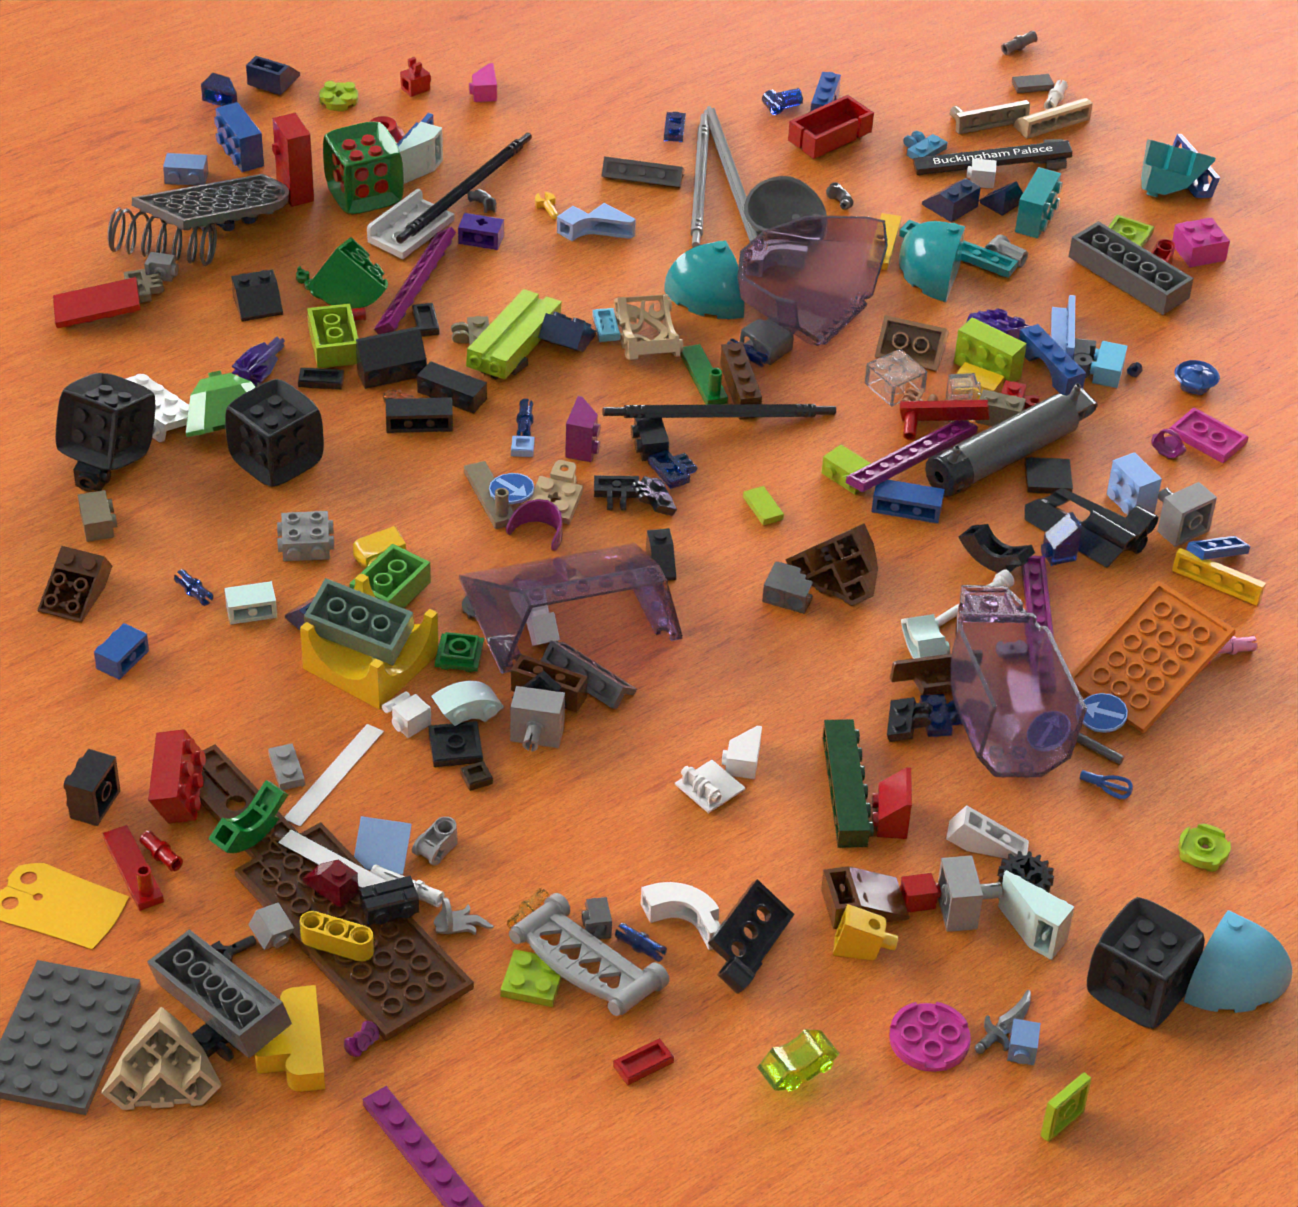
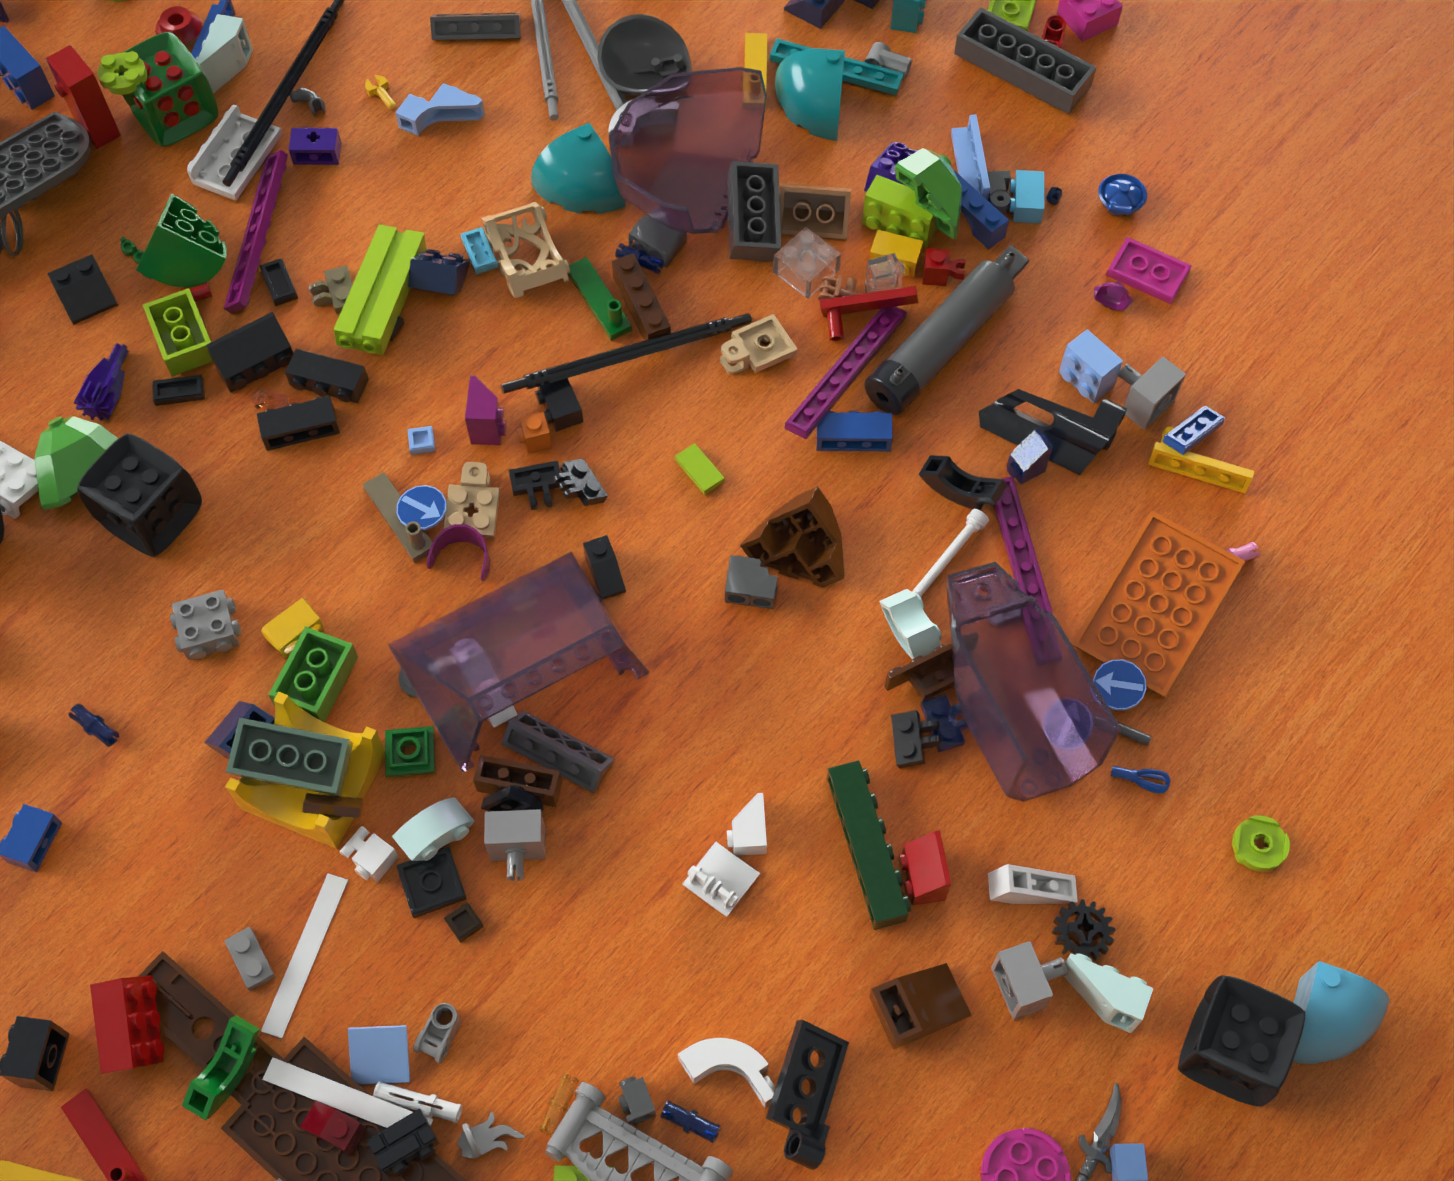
camera: 10 degrees left, 20 degrees up
(161, 851) = (132, 1117): red pin -> none
(250, 602) = (162, 734): light aqua brick -> none
(332, 140) = (114, 64): none -> lime plate
(389, 665) = (332, 805): none -> reddish brown tile
(525, 417) = (416, 402): clear blue pin -> none
(623, 454) = (534, 433): none -> orange brick
(672, 469) = (591, 439): clear blue hinge -> none
(828, 429) = (747, 348): none -> tan plate
(836, 191) = (690, 12): dark grey piece -> none
(841, 463) = (777, 399): lime brick -> none
(856, 331) = (753, 211): none -> dark grey brick
(862, 935) = (929, 1061): yellow torso -> none
(920, 892) = (977, 980): red brick -> none
(1001, 406) = (931, 284): dark tan brick -> none
(1020, 331) = (934, 187): none -> bright green brick
(1047, 475) = (994, 362): black tile -> none

